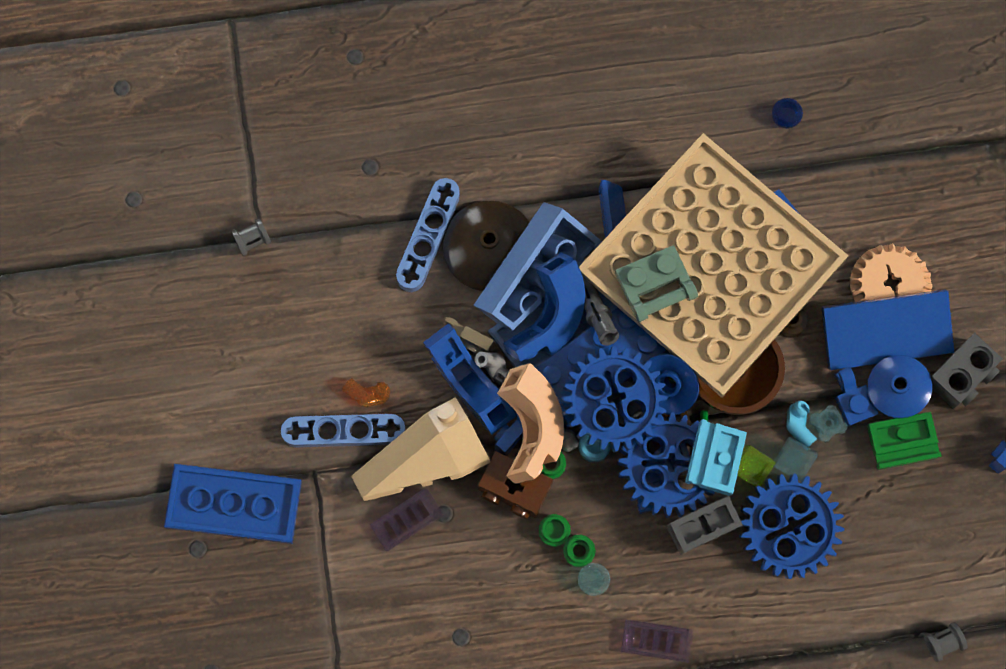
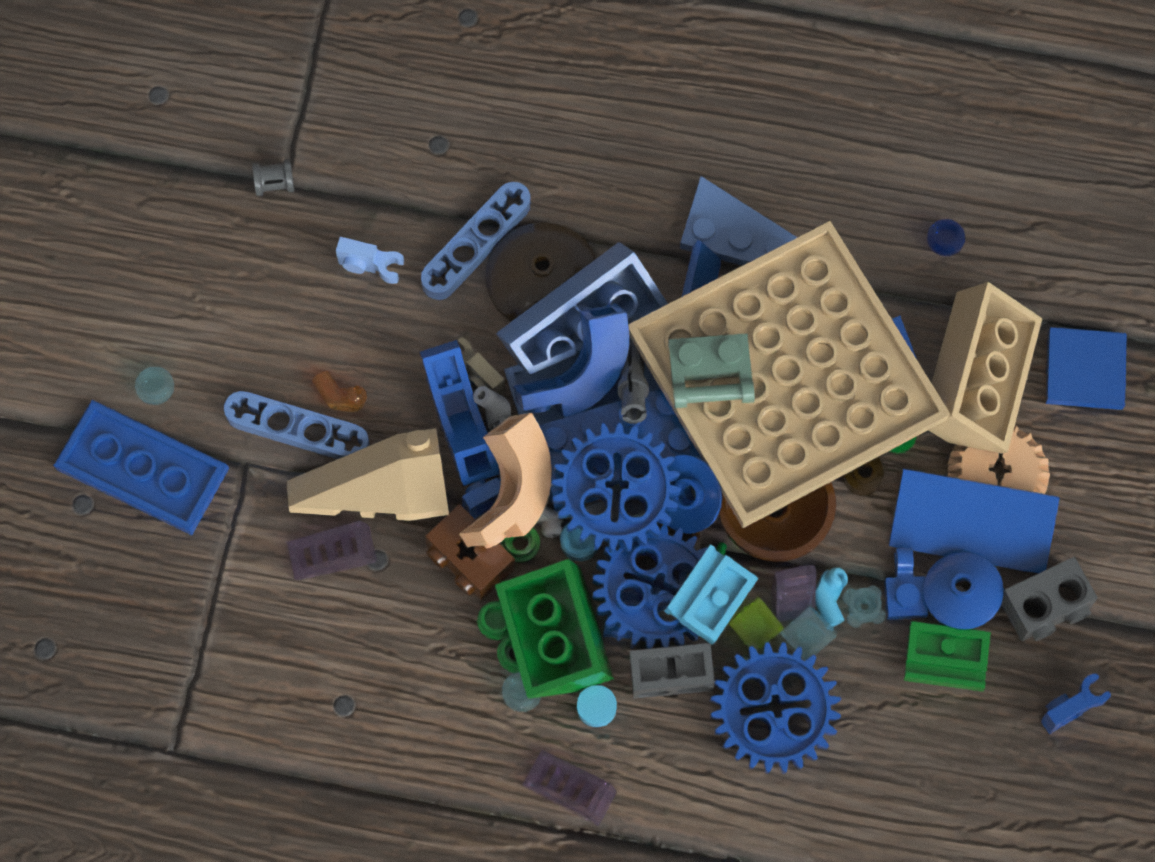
camera: 20 degrees right, 5 degrees down
(219, 435) = (154, 385): none -> clear light blue plate
(342, 279) = (363, 257): none -> light blue plate
(603, 525) = (554, 630): none -> green slope
(624, 160) = (730, 227): none -> medium blue wing
(654, 570) = (596, 706): none -> medium azure tile
(774, 432) = (793, 591): none -> clear purple slope
(854, 206) = (984, 367): none -> tan slope
(928, 181) = (1086, 368): none -> blue tile

